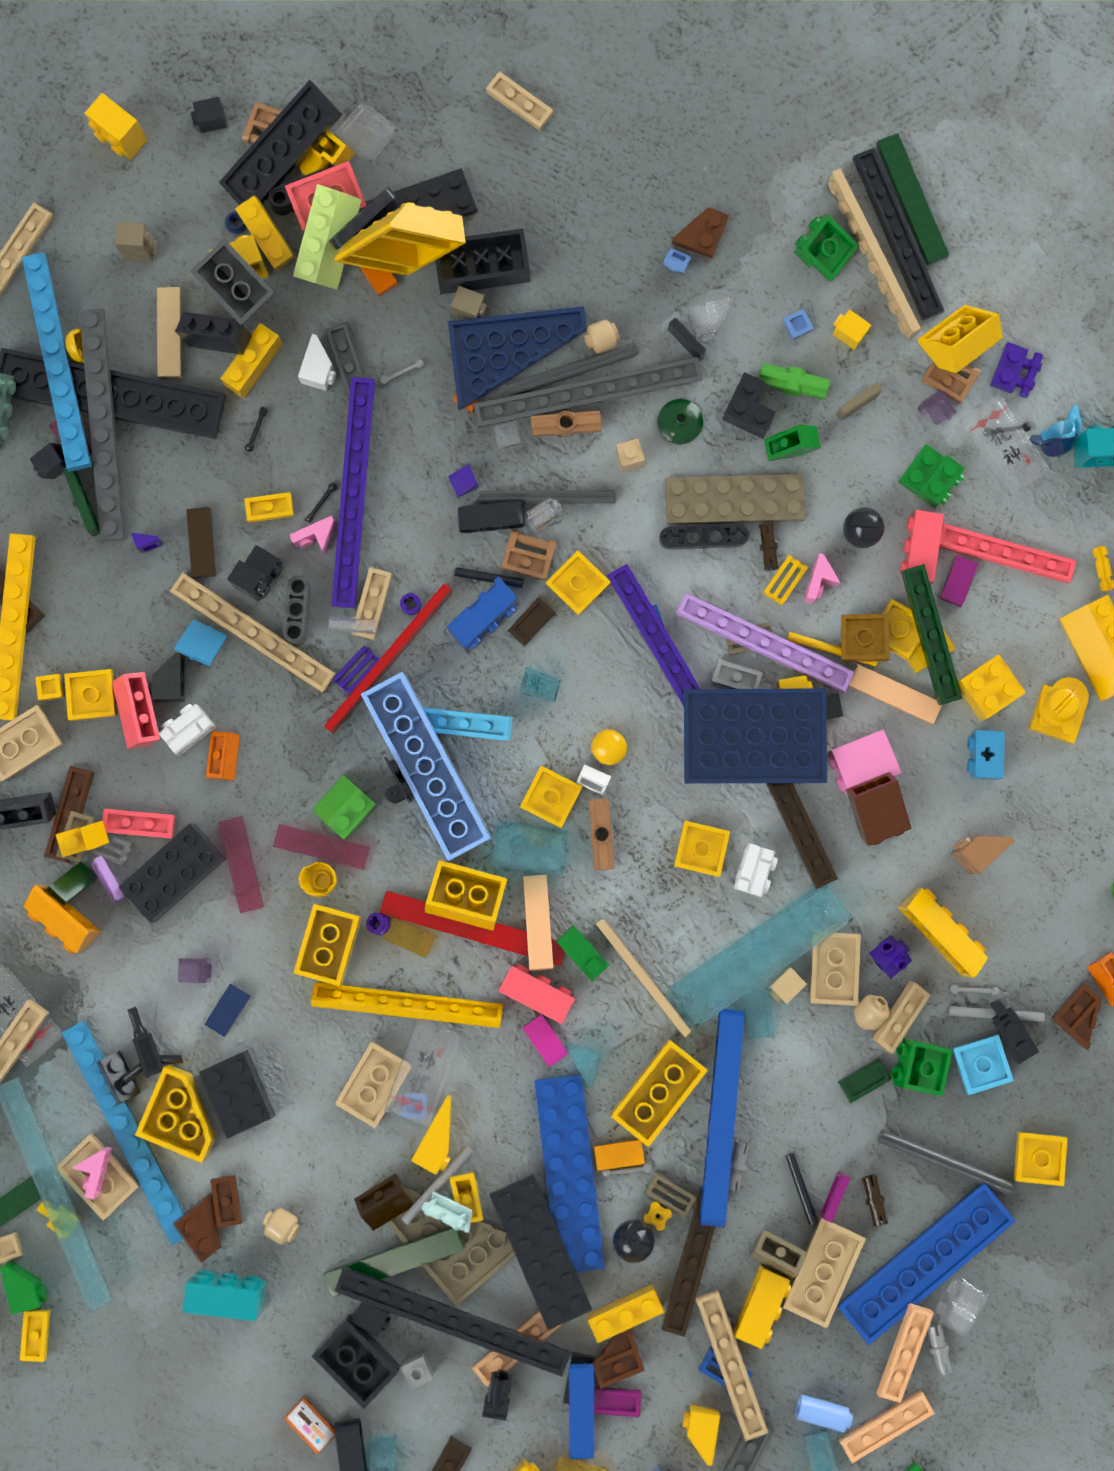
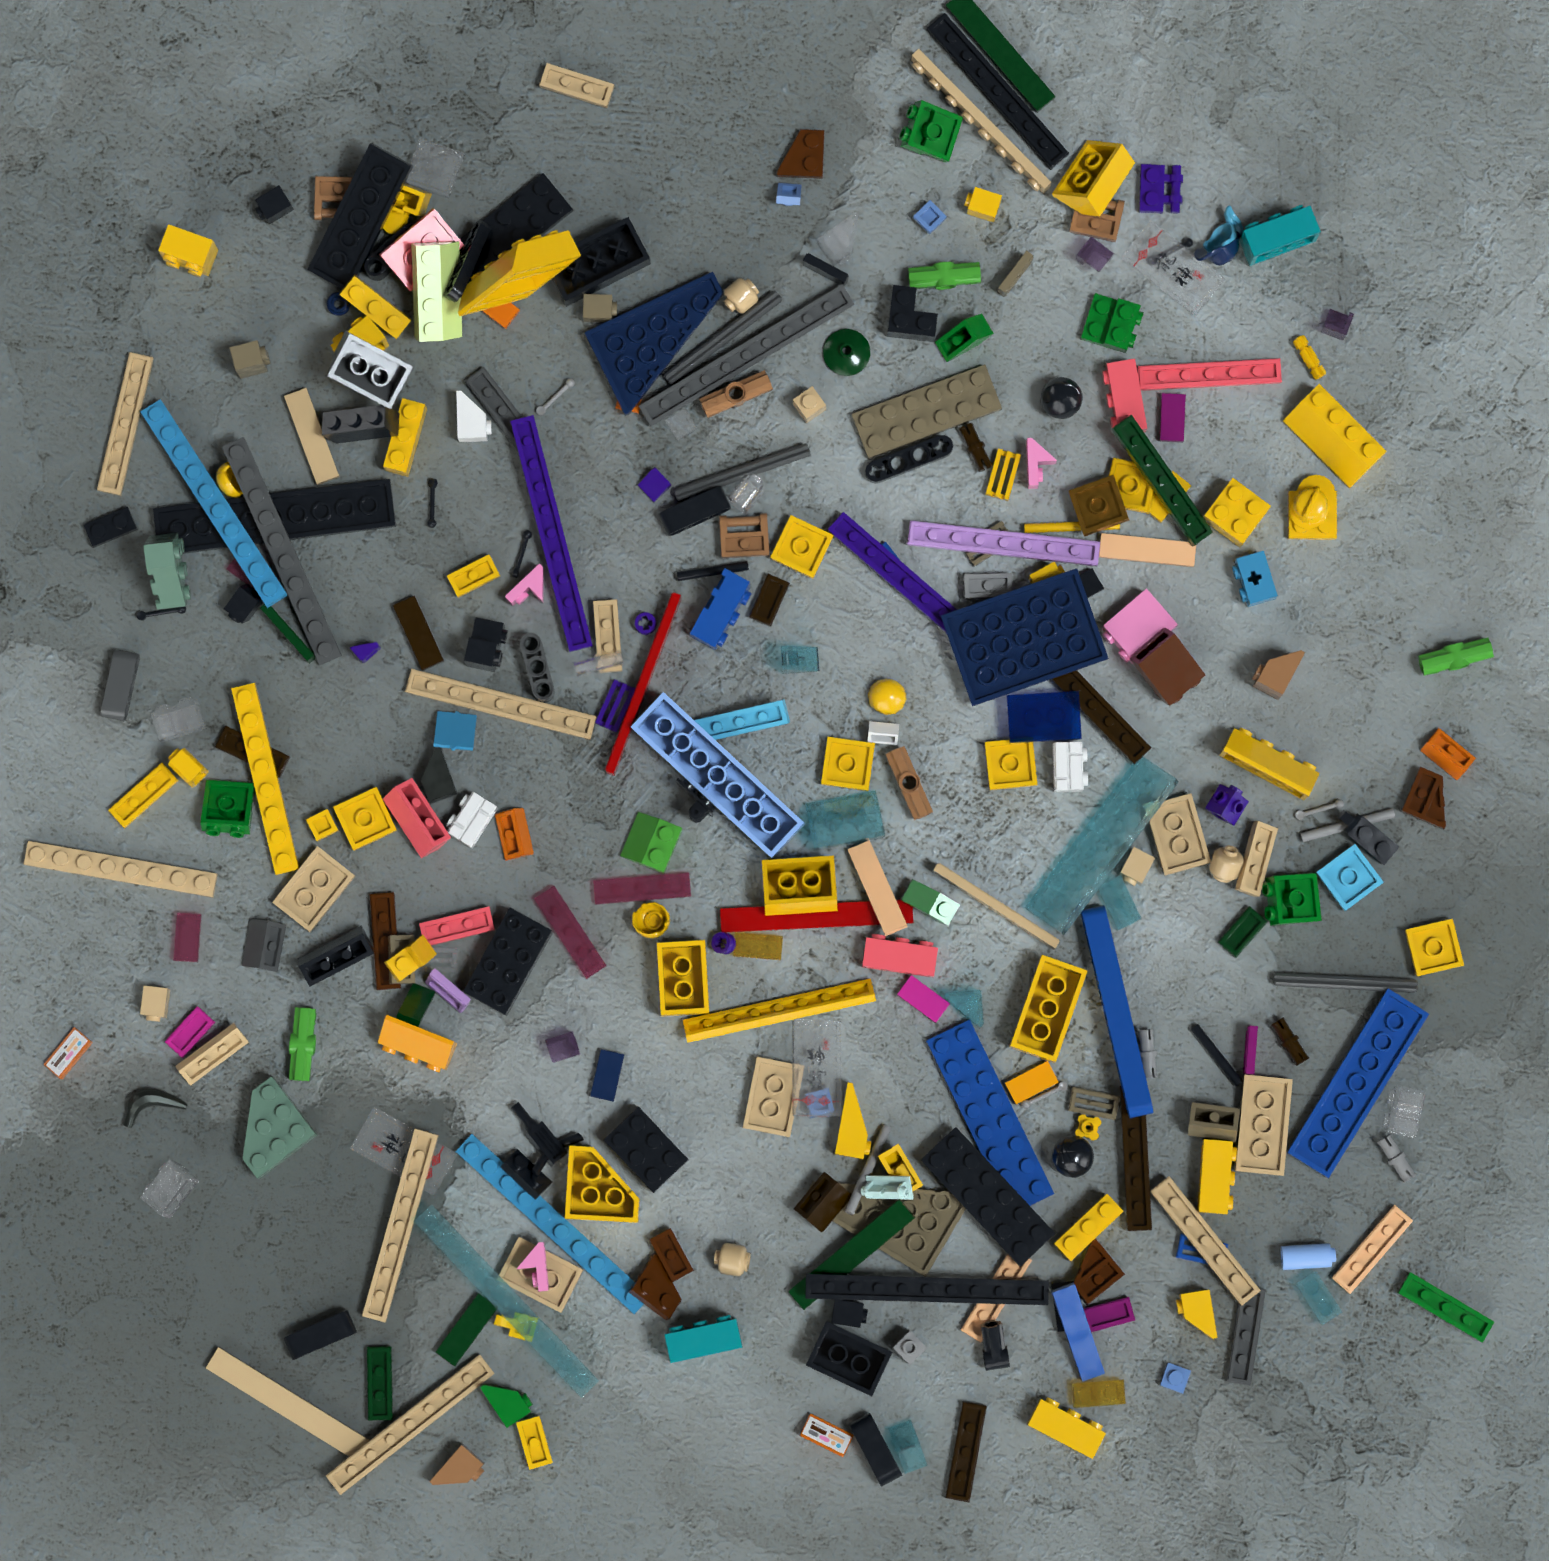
camera: 15 degrees left, 0 degrees up
(747, 816) = (1044, 717): none -> clear blue tile
(904, 1353) = (1365, 1173): light nougat tile -> none

